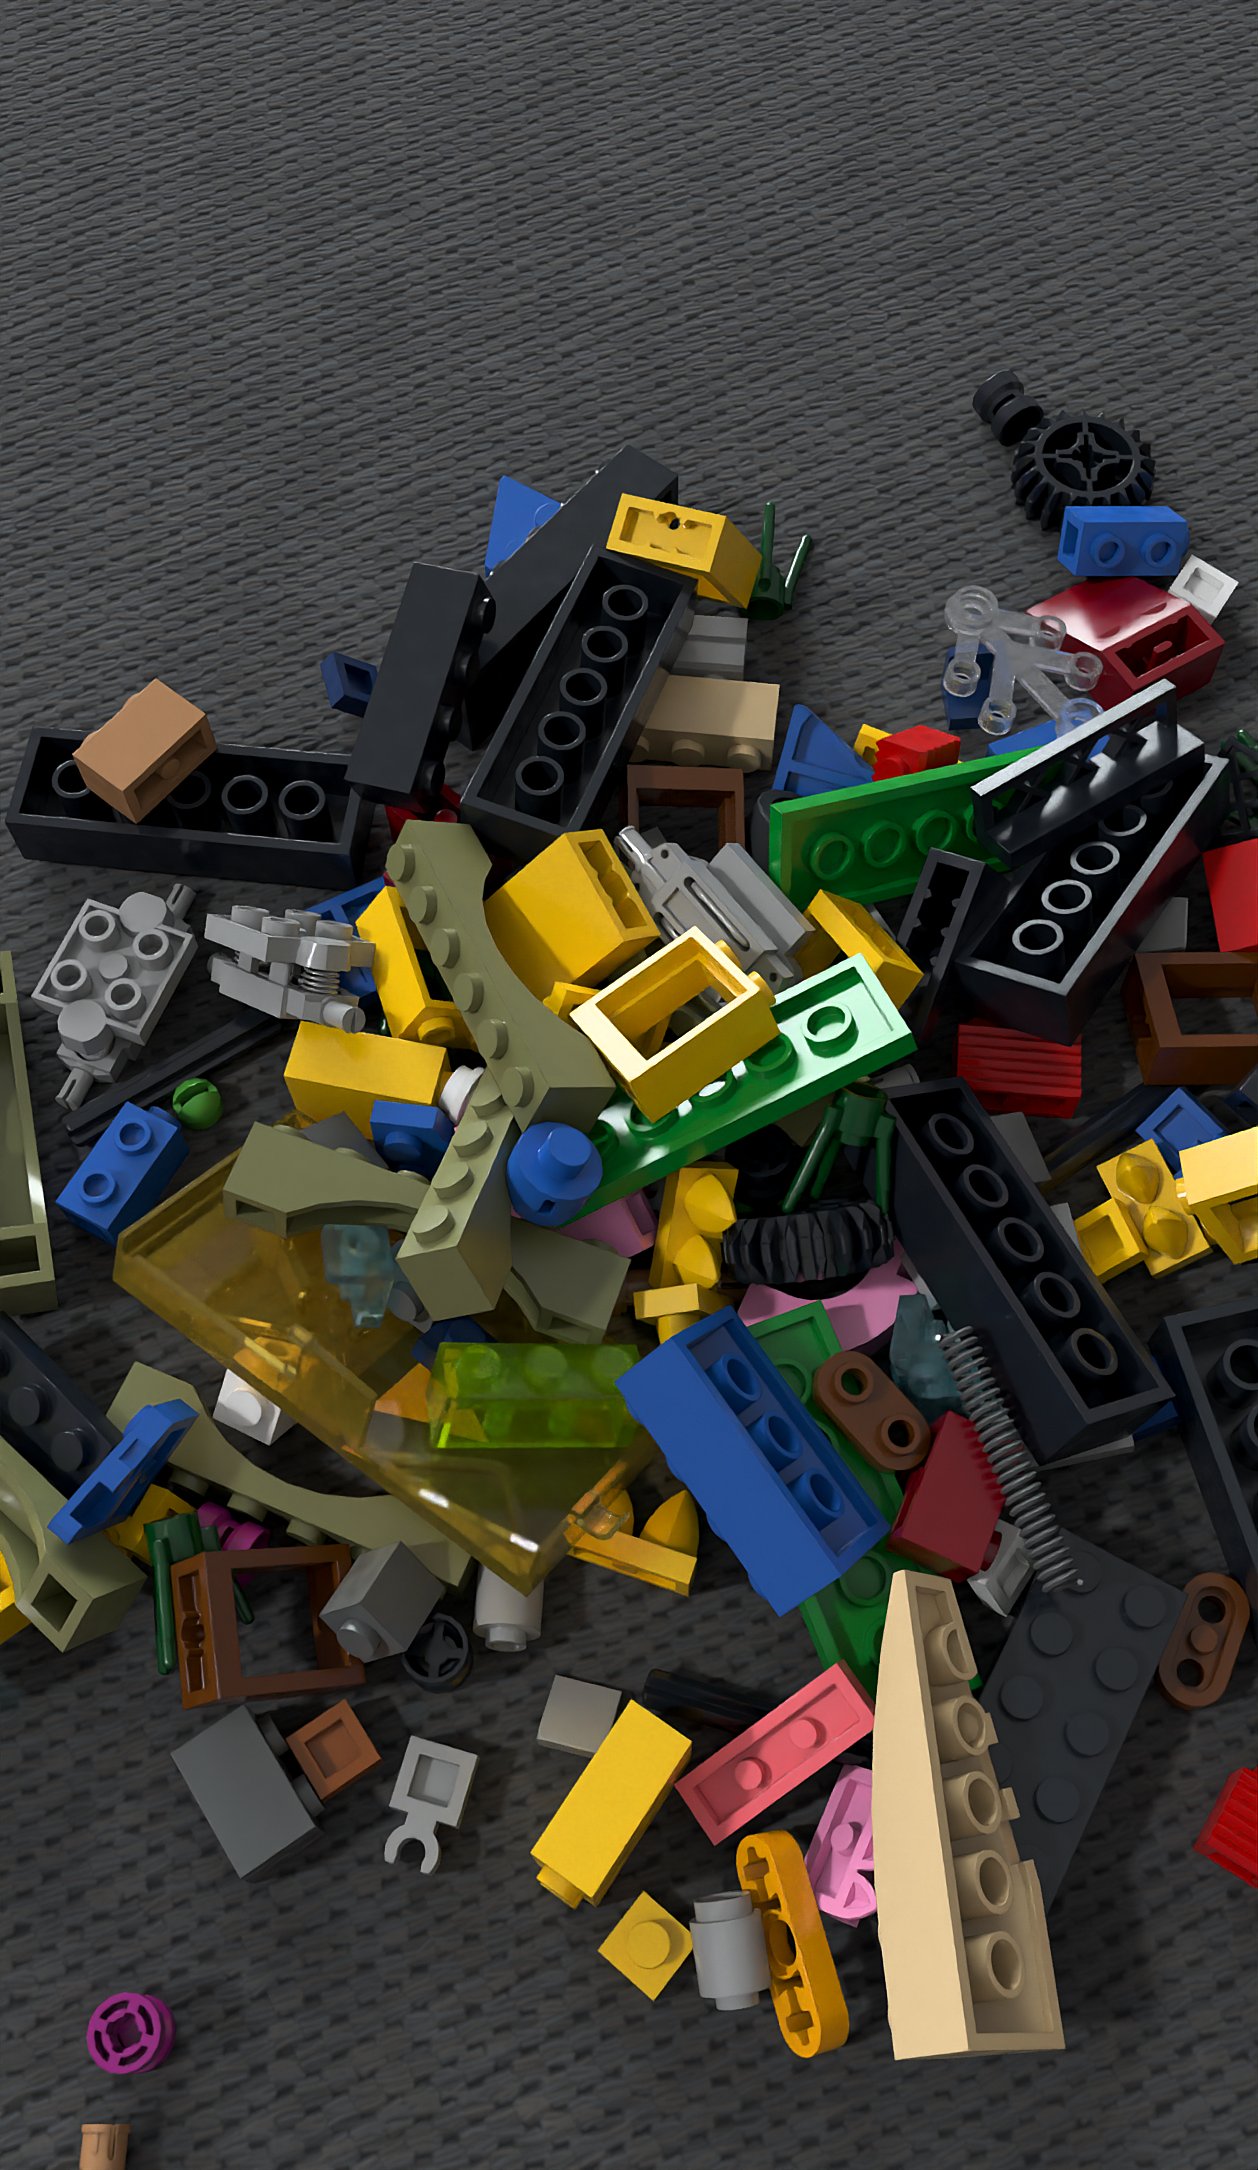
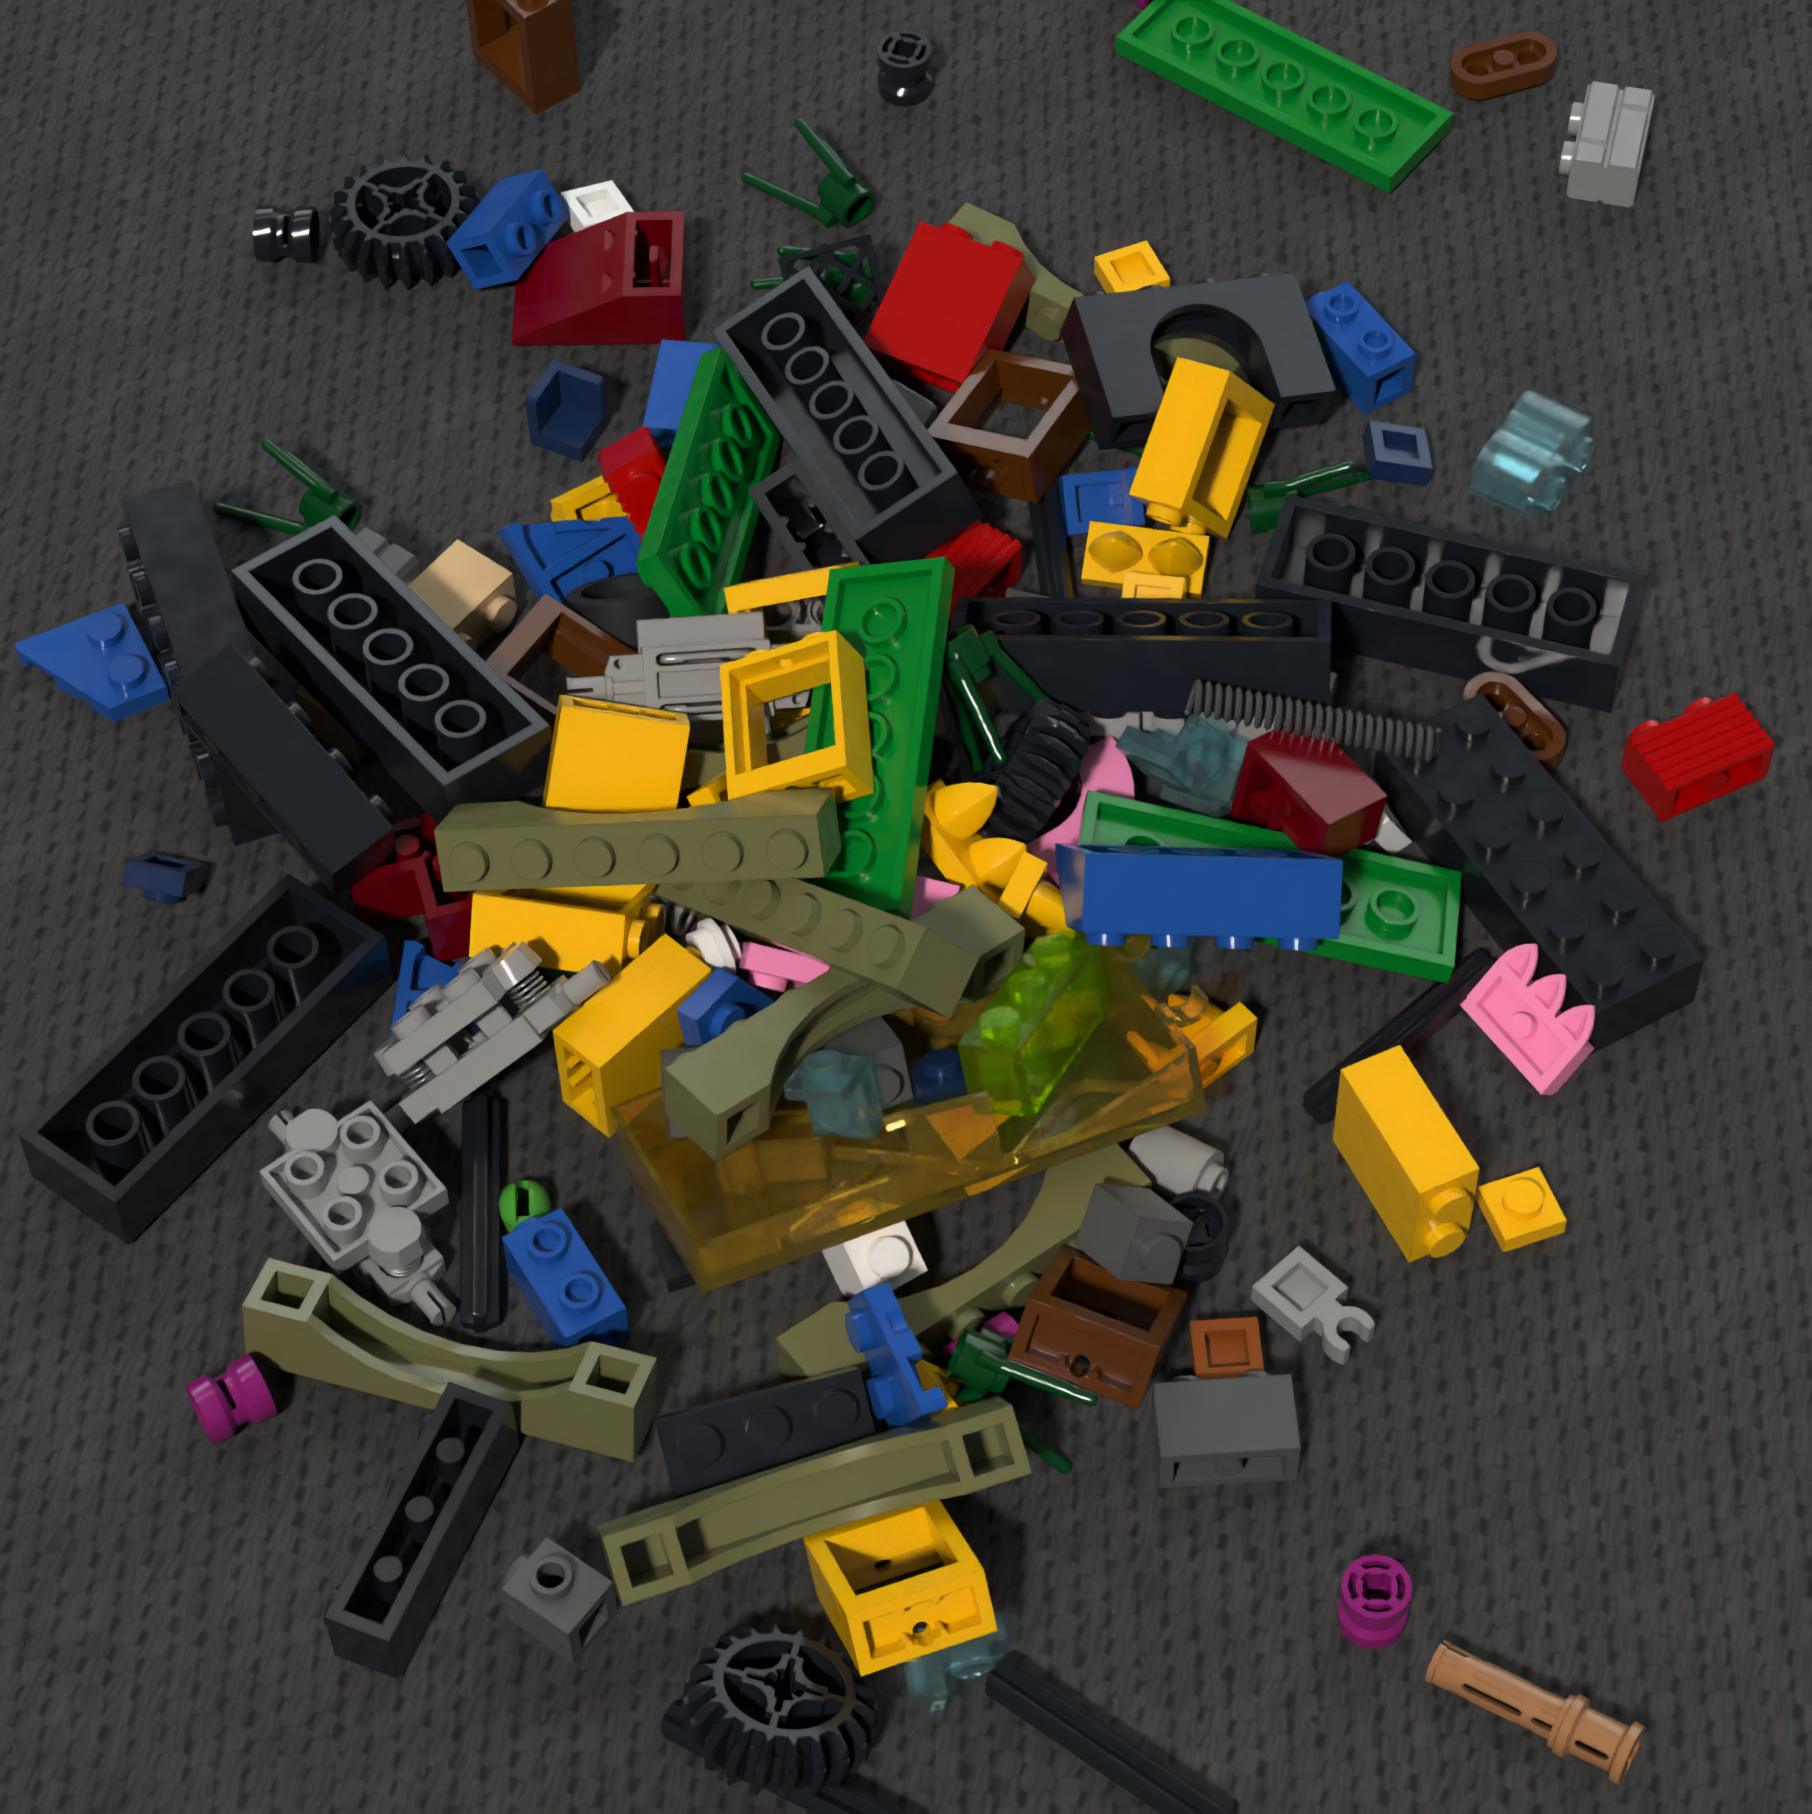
camera: 60 degrees left, 10 degrees down
(145, 750) = (148, 1035): medium nougat brick -> none
(552, 1165) = (877, 868): blue piece -> none
(578, 1716) = (1311, 1171): light grey slope -> none
(701, 547) = (305, 496): yellow window -> none
(730, 1949) = (1559, 1143): light grey brick -> none
(778, 1752) = (1433, 1013): coral plate -> none
(803, 1986) = (1590, 1126): light orange beam -> none
(867, 1416) = (1205, 808): reddish brown plate -> none
(952, 1896) = (1609, 937): tan wedge -> none
(976, 617) = (522, 361): clear plant -> none
(1084, 787) = (752, 367): black fence -> none

